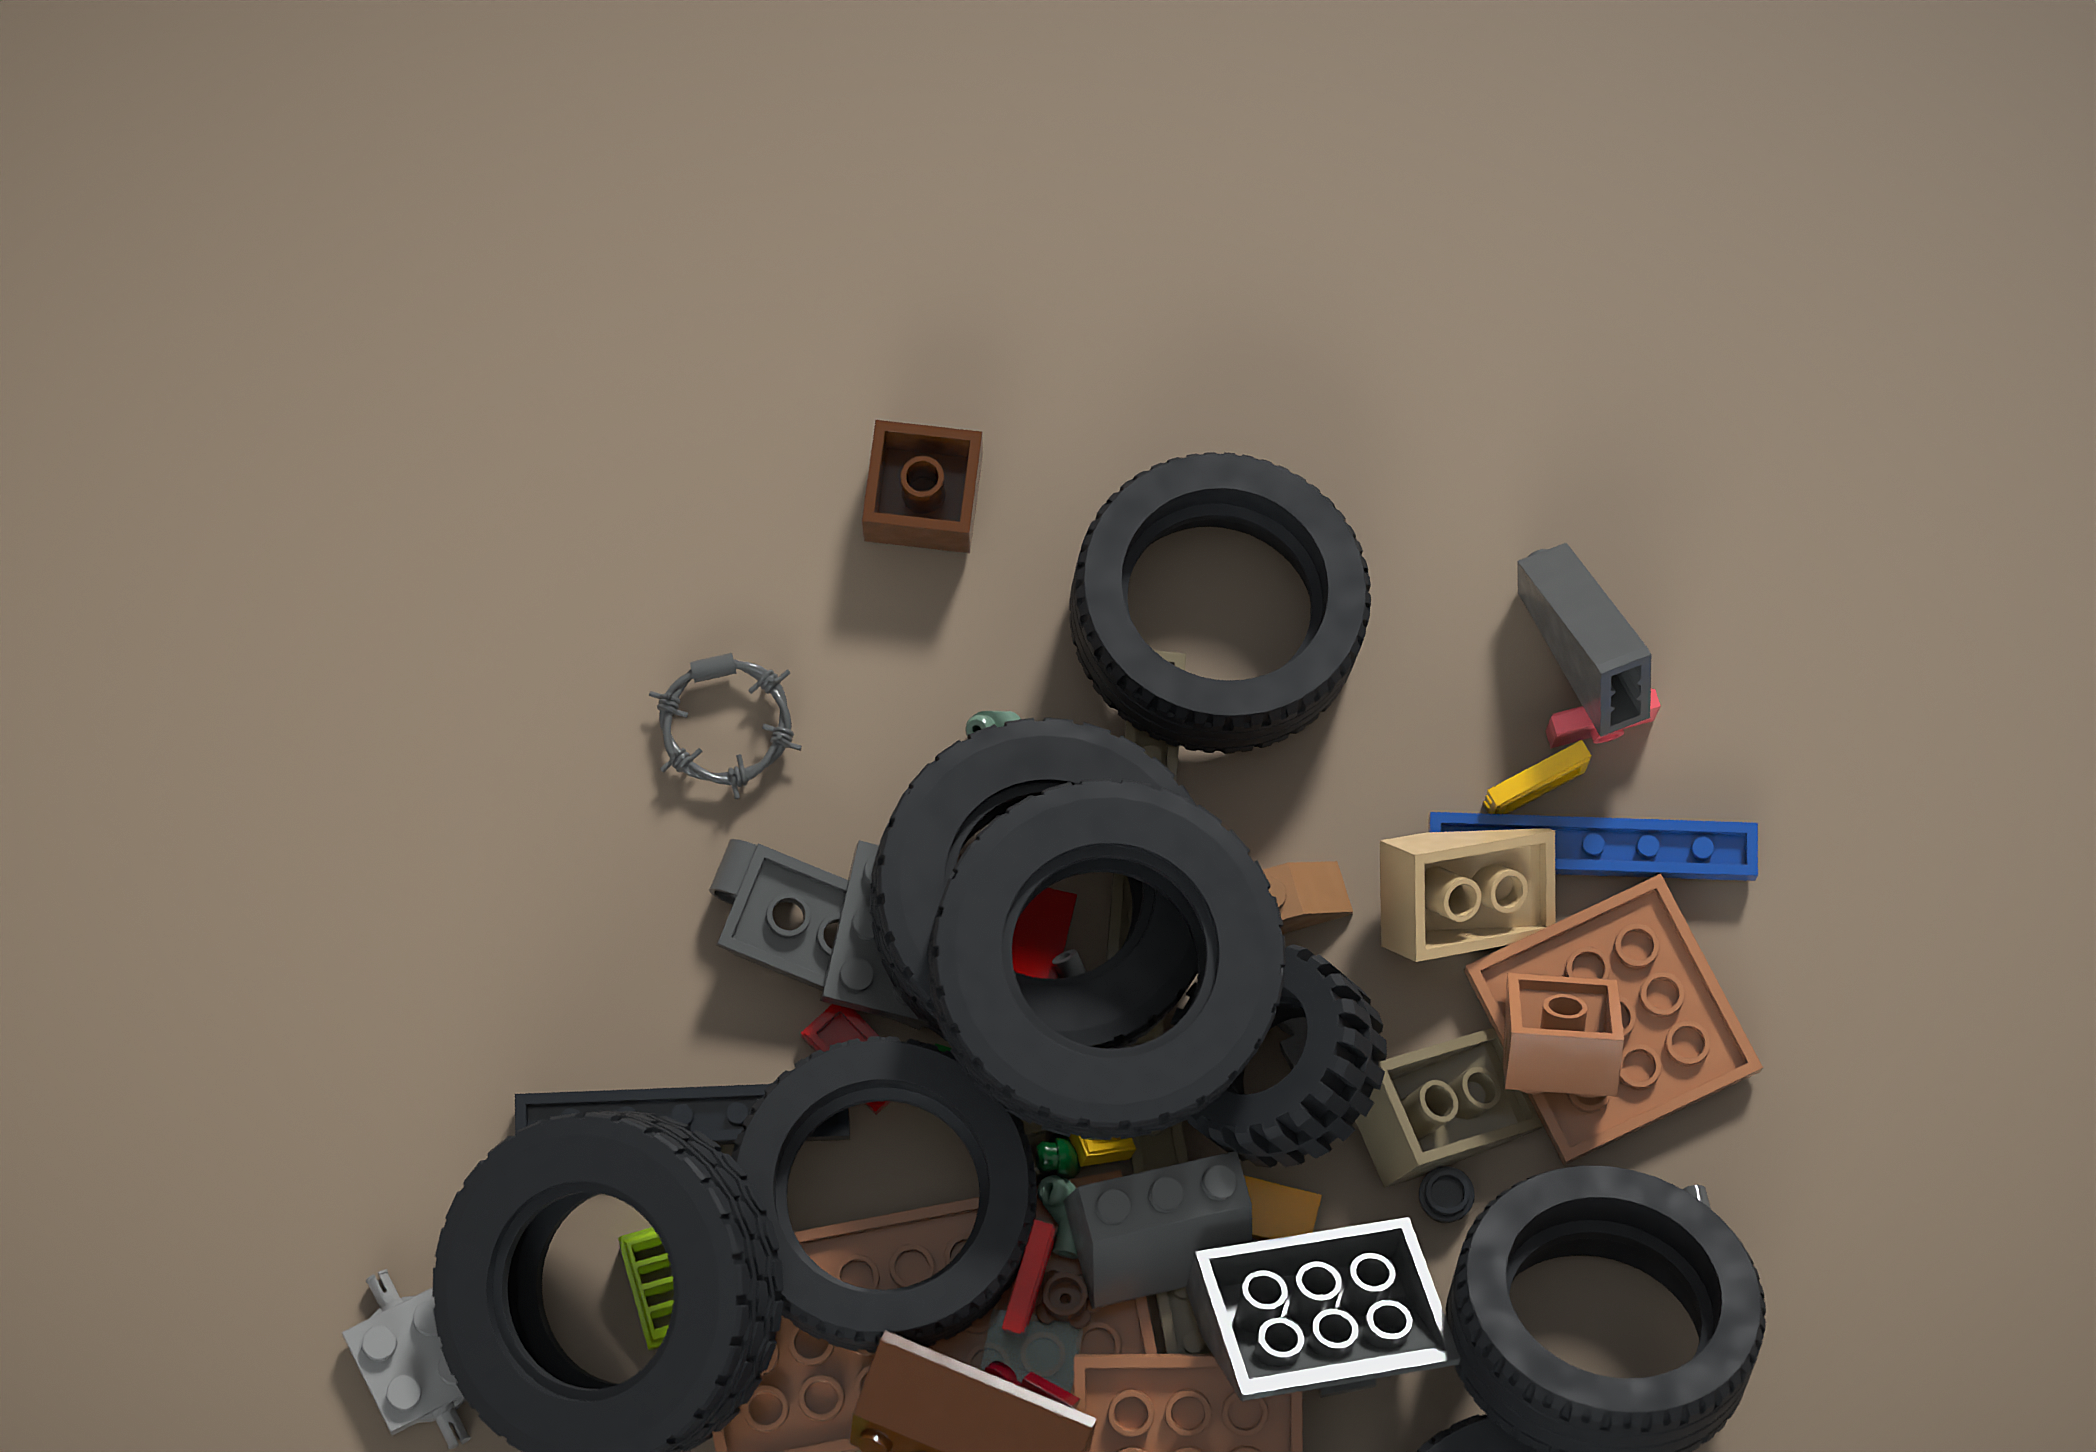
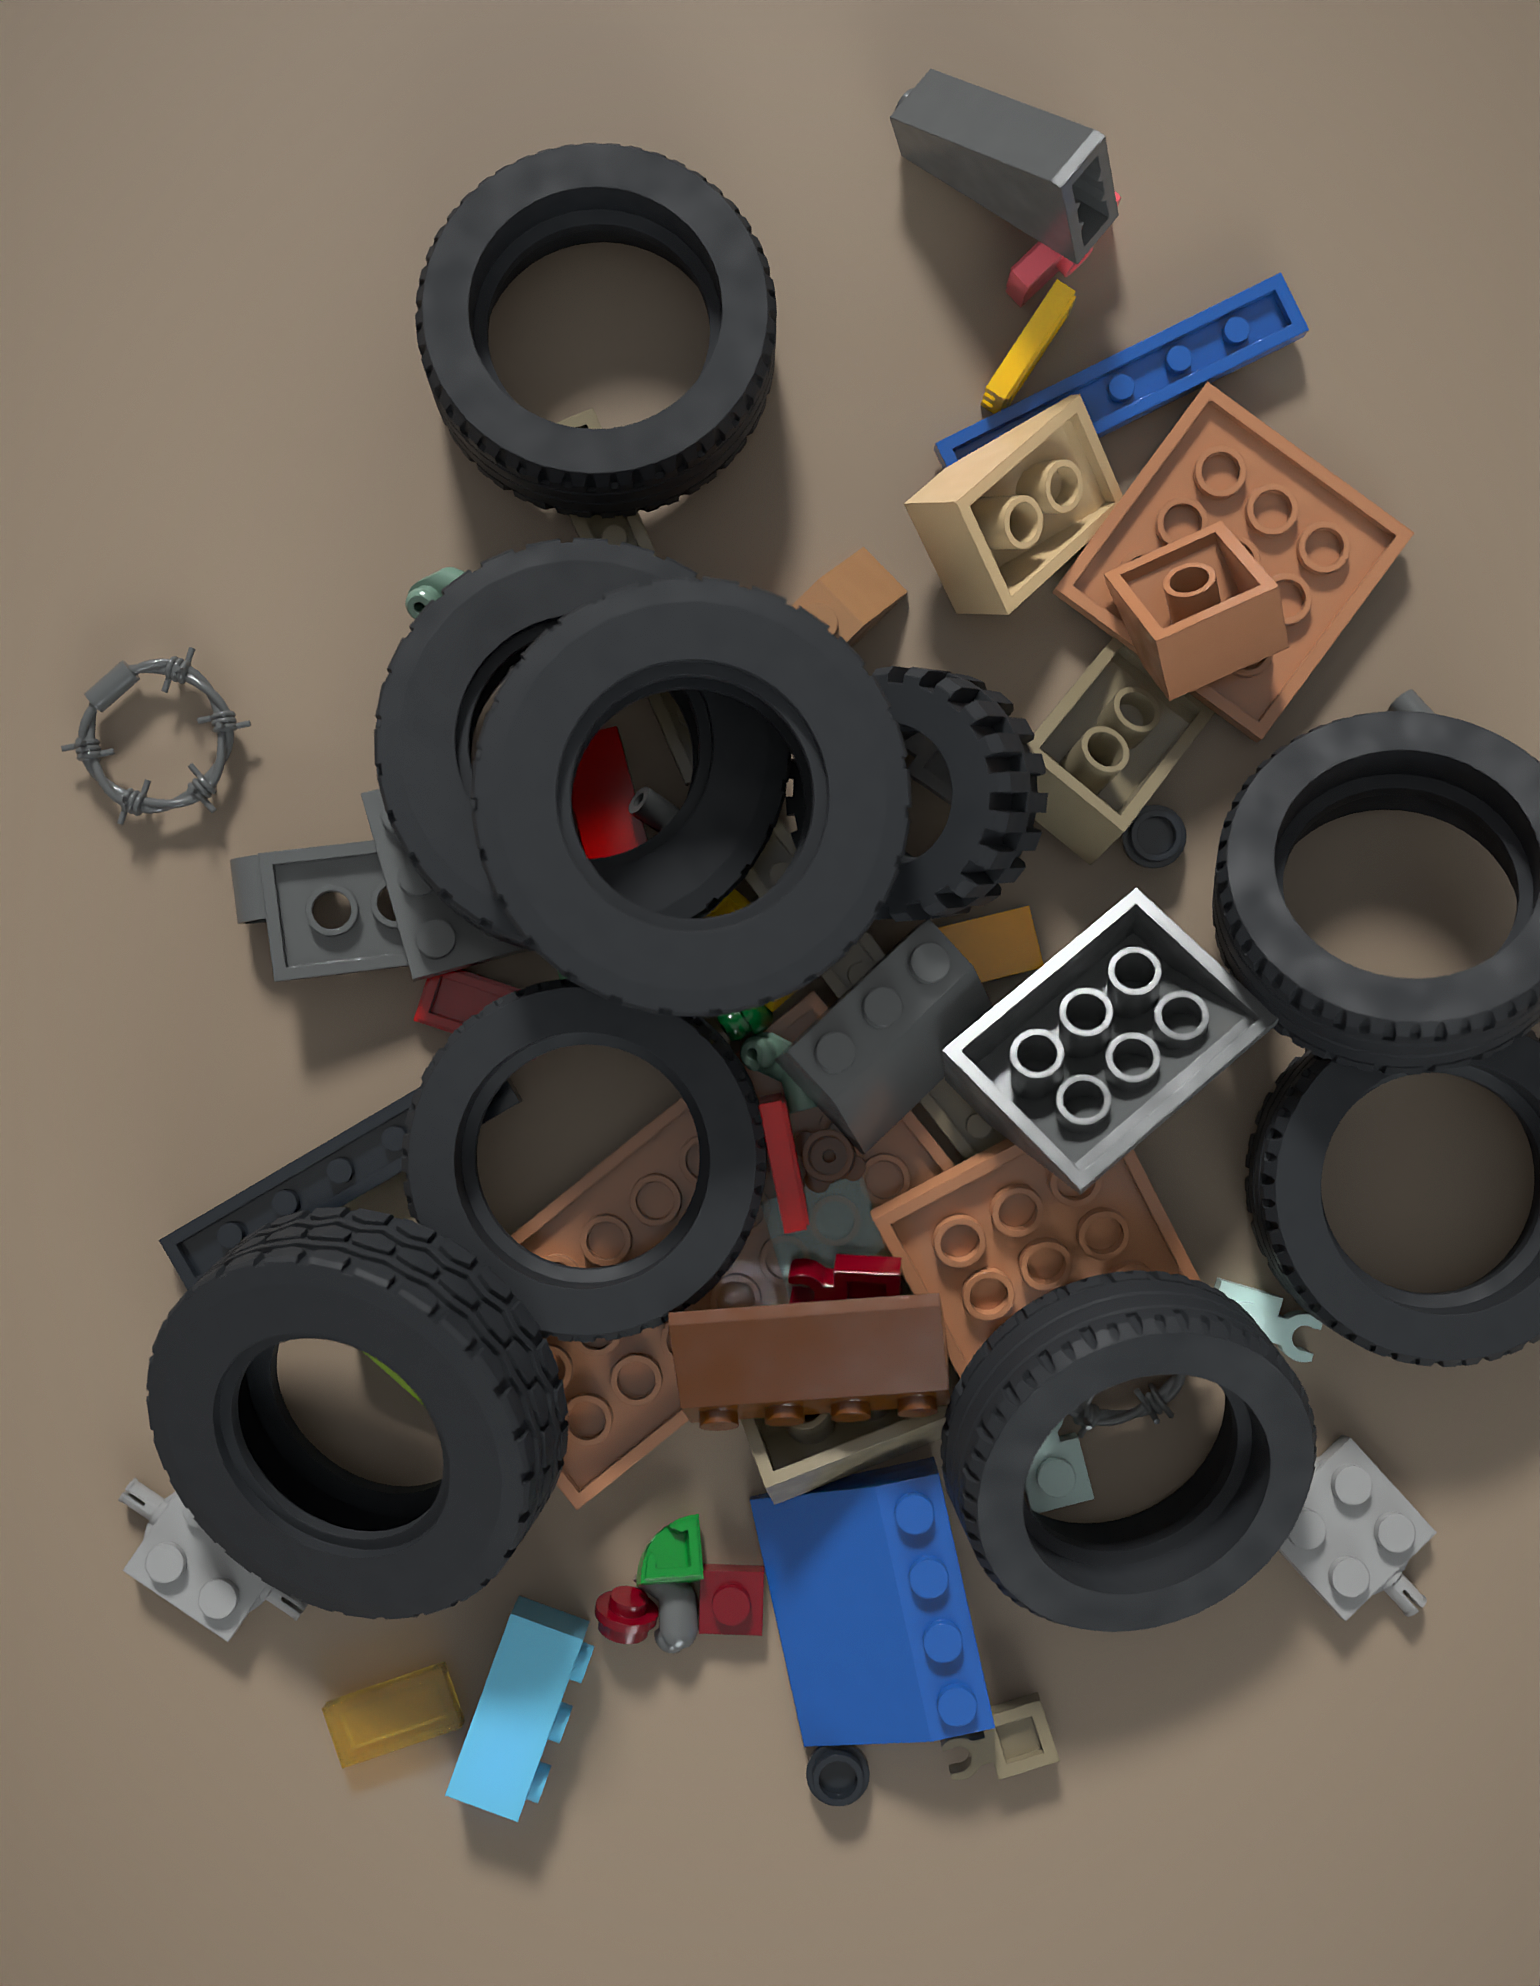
camera: 30 degrees left, 15 degrees up
(922, 486) = (218, 372): reddish brown brick -> none

